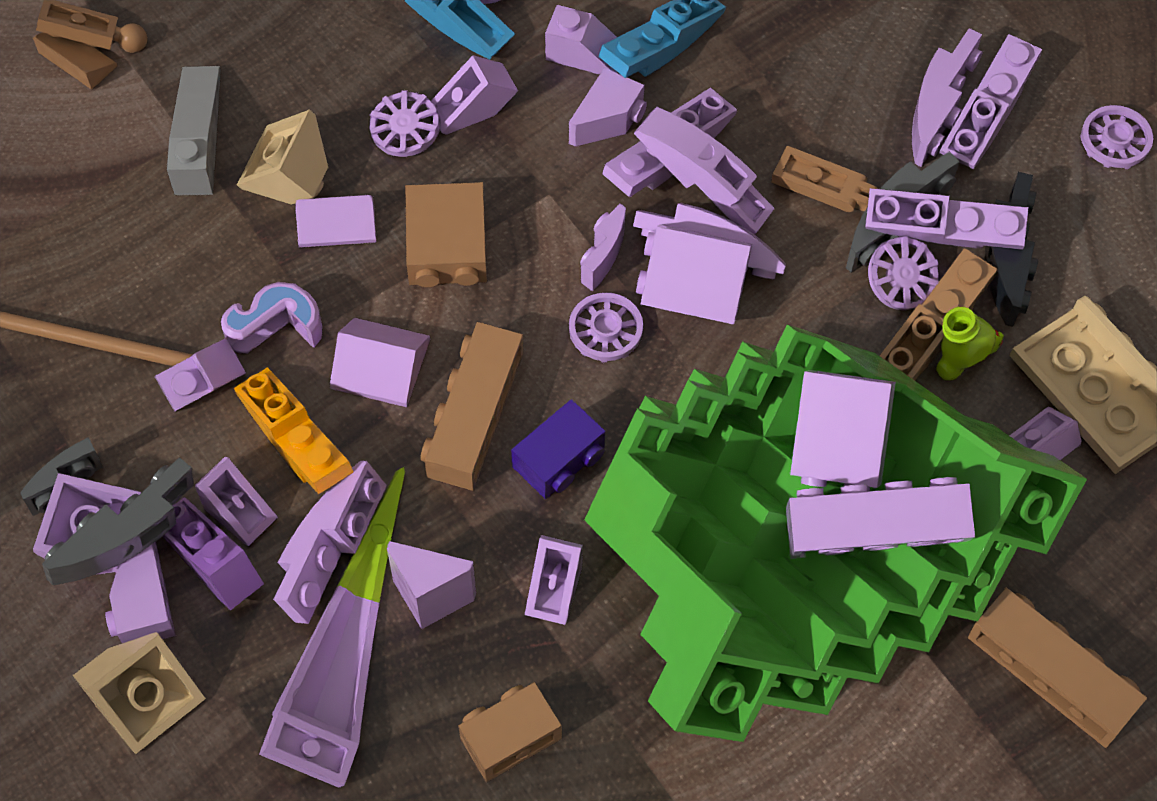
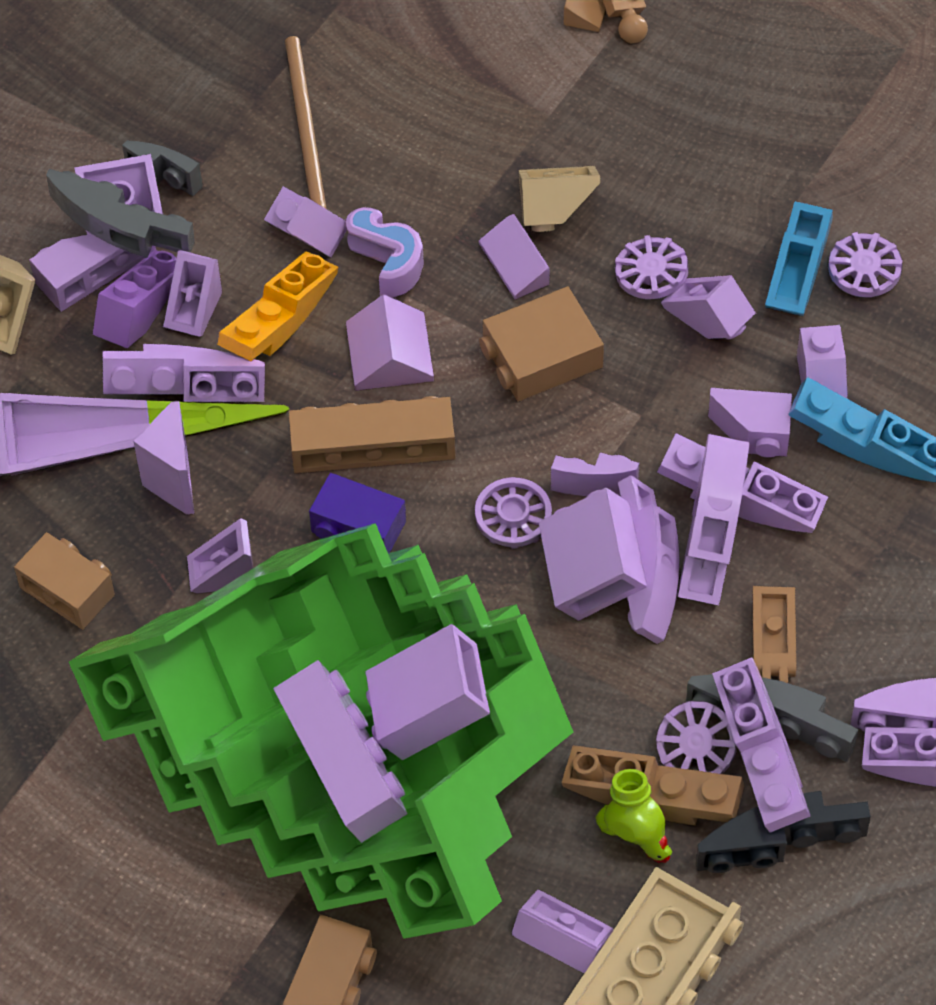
camera: 70 degrees right, 5 degrees down
(194, 131) = (548, 113): light grey slope -> none

